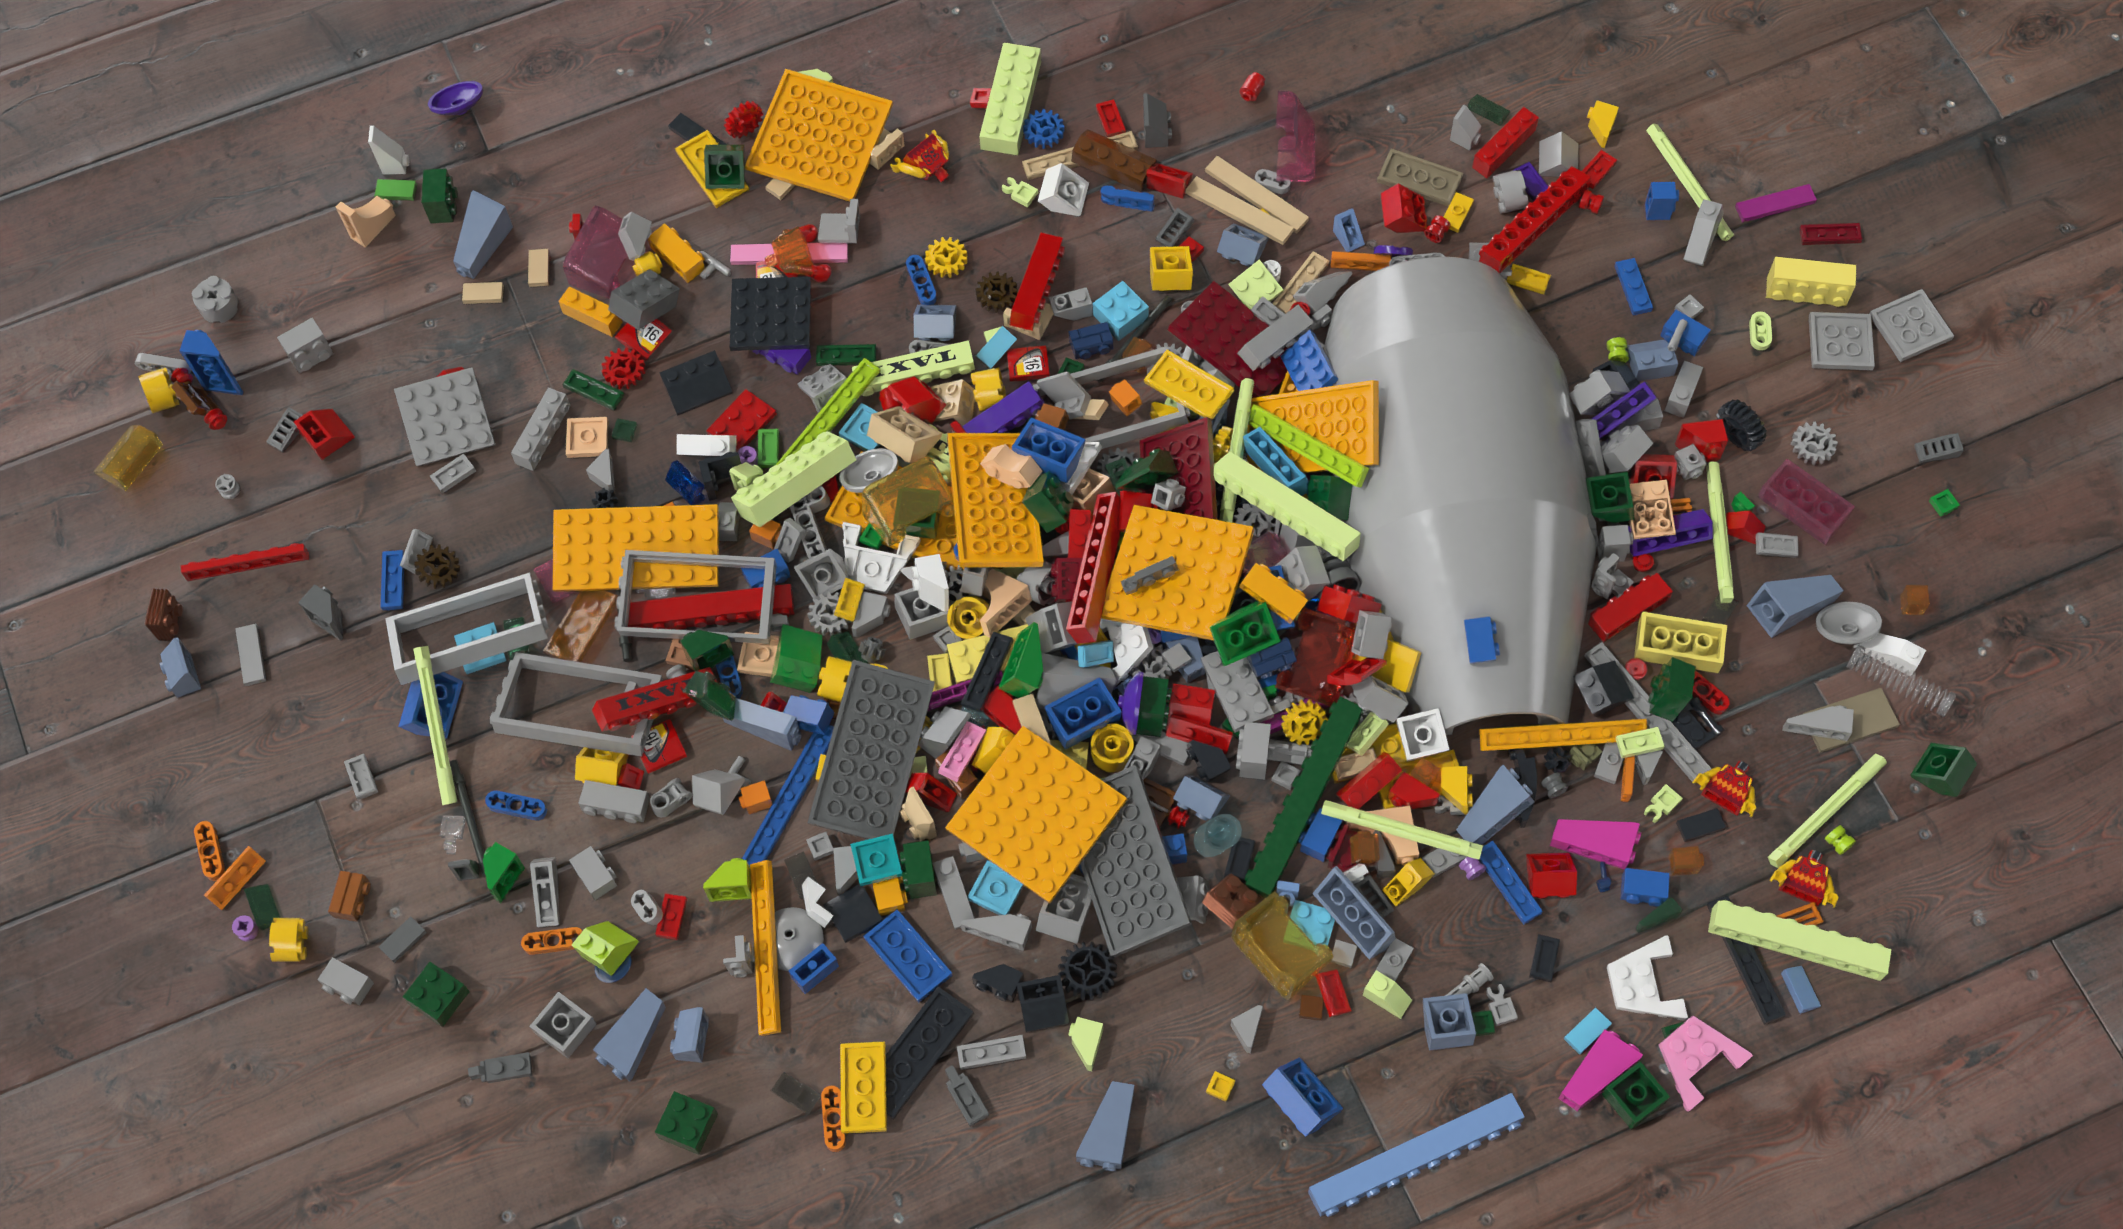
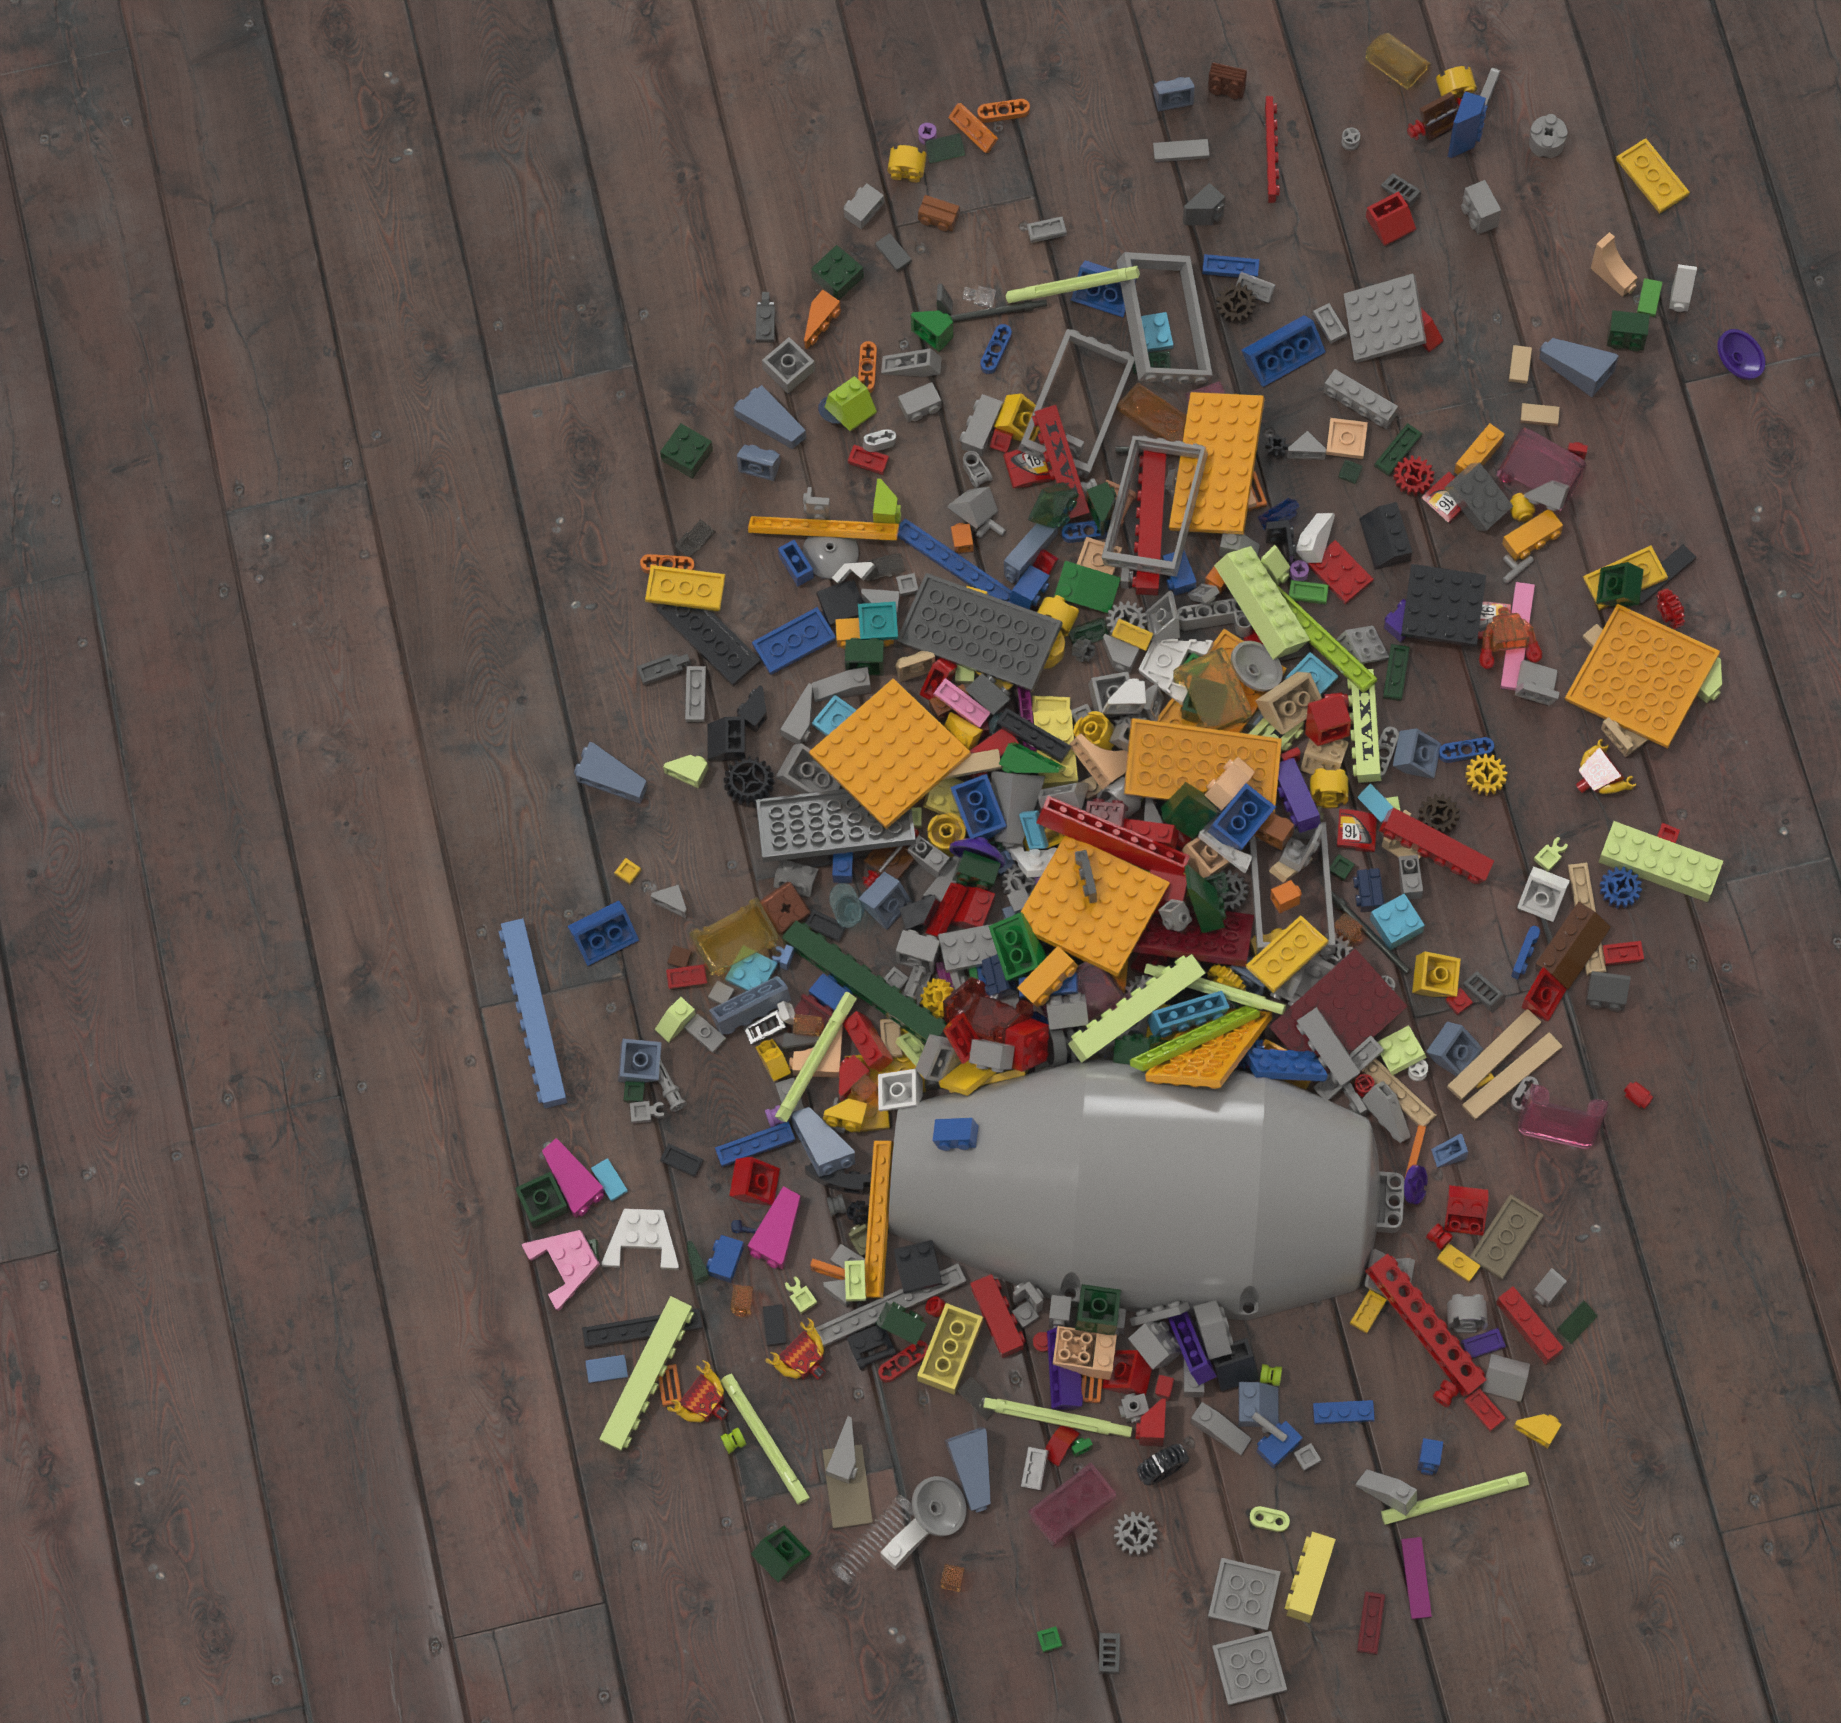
camera: 100 degrees right, 5 degrees up
(254, 205) = (1652, 175): none -> yellow tile
(489, 512) = (1283, 350): none -> blue slope
(490, 1004) = (822, 311): none -> orange slope
(1659, 439) = (1164, 1387): none -> red slope

